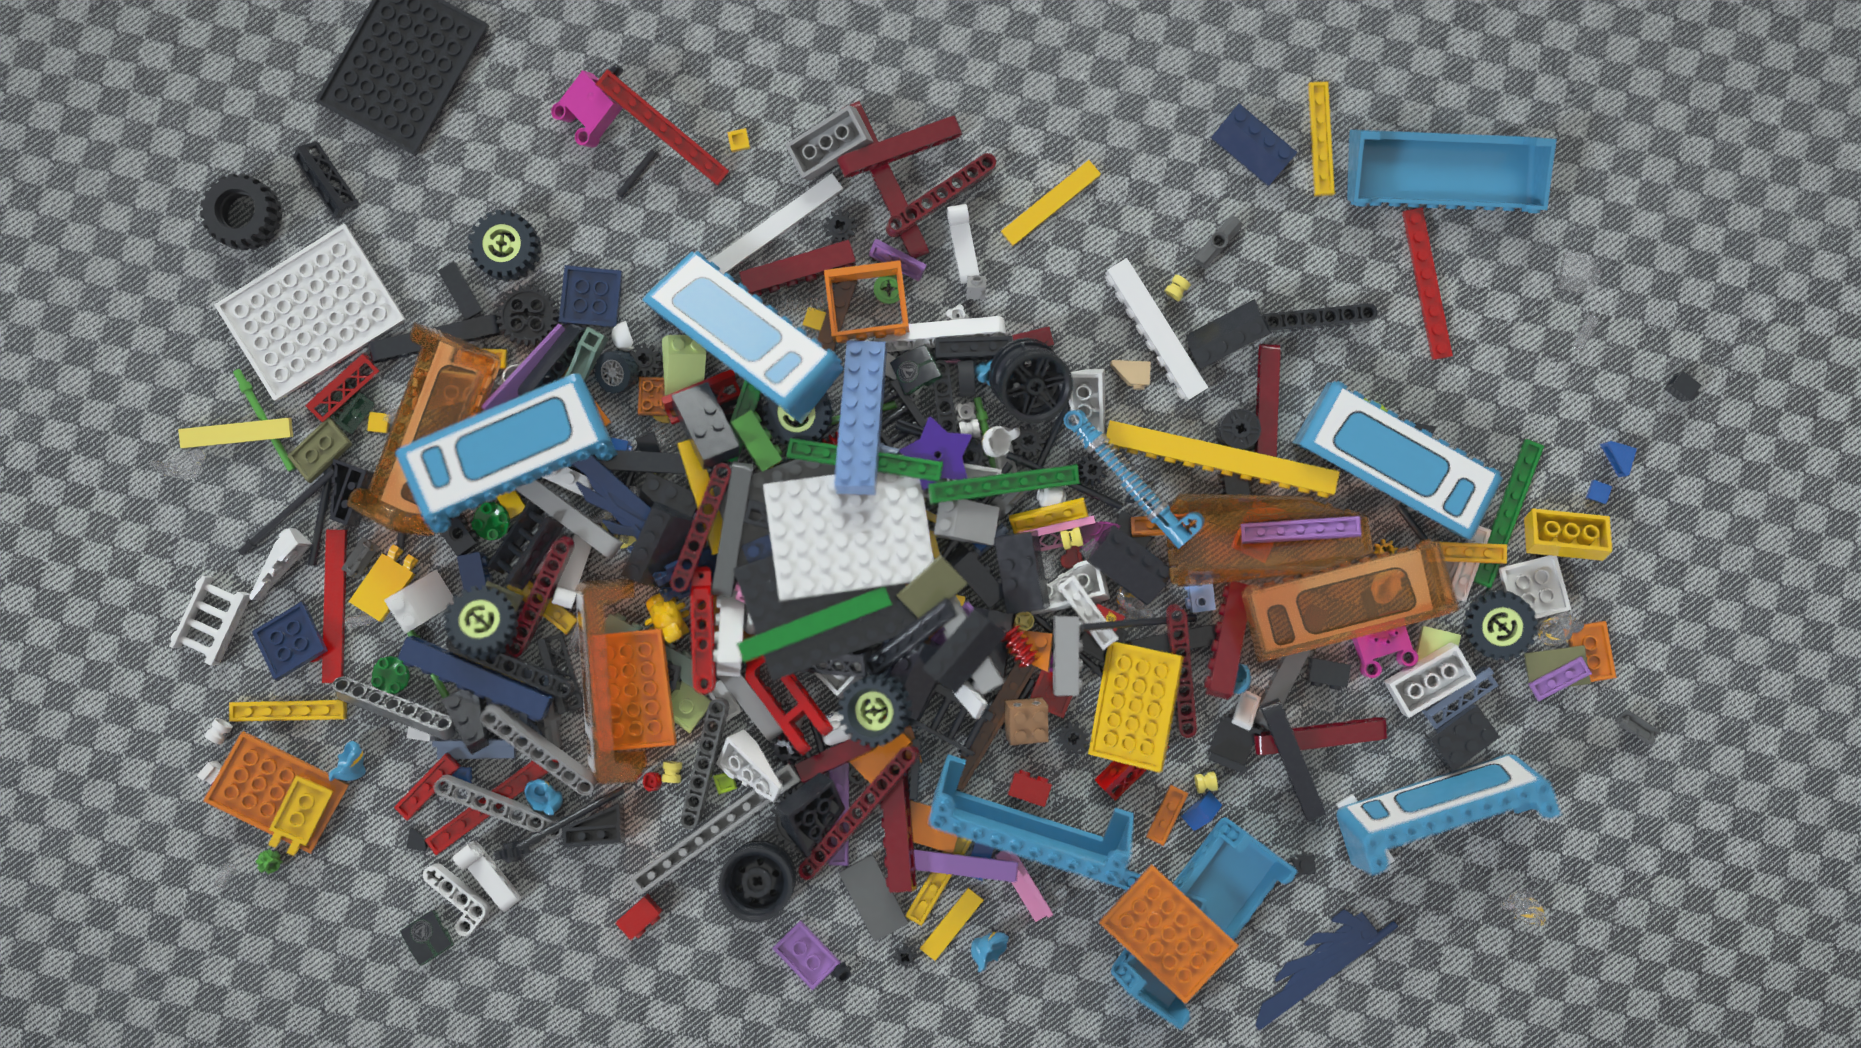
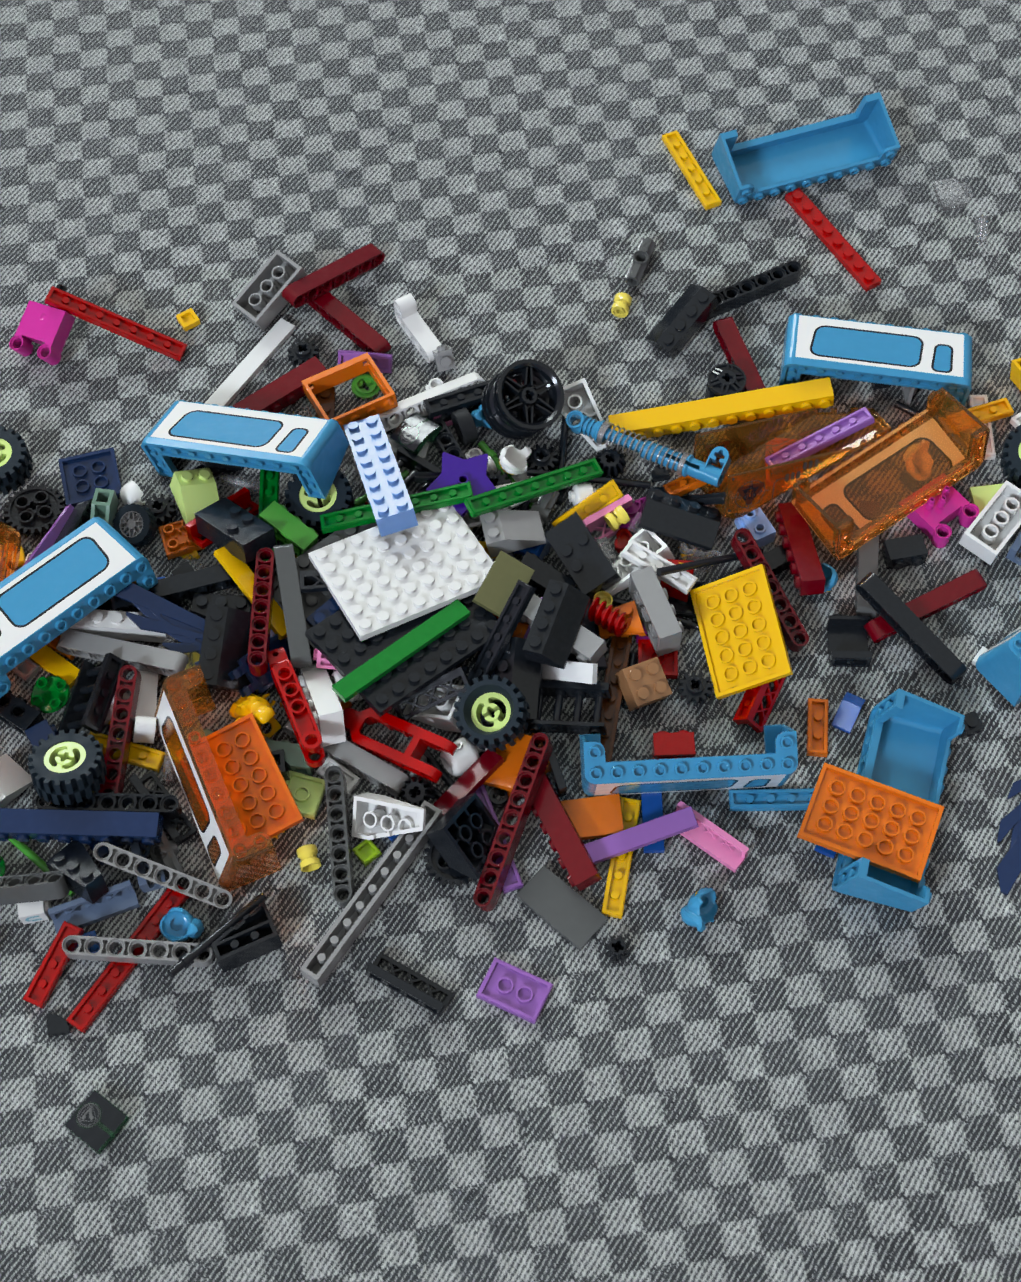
camera: 20 degrees left, 25 degrees down
(454, 896) = (115, 1062): white beam -> none
(487, 874) = (144, 1028): white beam -> none
(510, 852) = (164, 992): black gear -> none
(636, 173) = (102, 374): black bar -> none
(638, 917) = (323, 1013): red brick -> none
(652, 781) = (291, 875): red tile -> none
(714, 922) = (407, 988): none -> black fence
(740, 903) = (414, 901): black wheel -> none
(841, 972) = (558, 992): black plate -> none
(947, 189) = (382, 299): dark red beam -> none
(951, 924) = (651, 904): yellow tile -> none
(1050, 203) = (482, 282): yellow tile -> none
(1133, 372) = (611, 378): tan slope -> none
(1156, 330) = (618, 341): white brick -> none
(1161, 553) = (707, 499): none -> black axle
(1205, 782) = (838, 683): light yellow wheel -> none
(1246, 710) = (846, 605): white tile -> none
(1253, 144) = (637, 187): dark blue slope -> none
(1510, 506) = (993, 373): green tile -> none

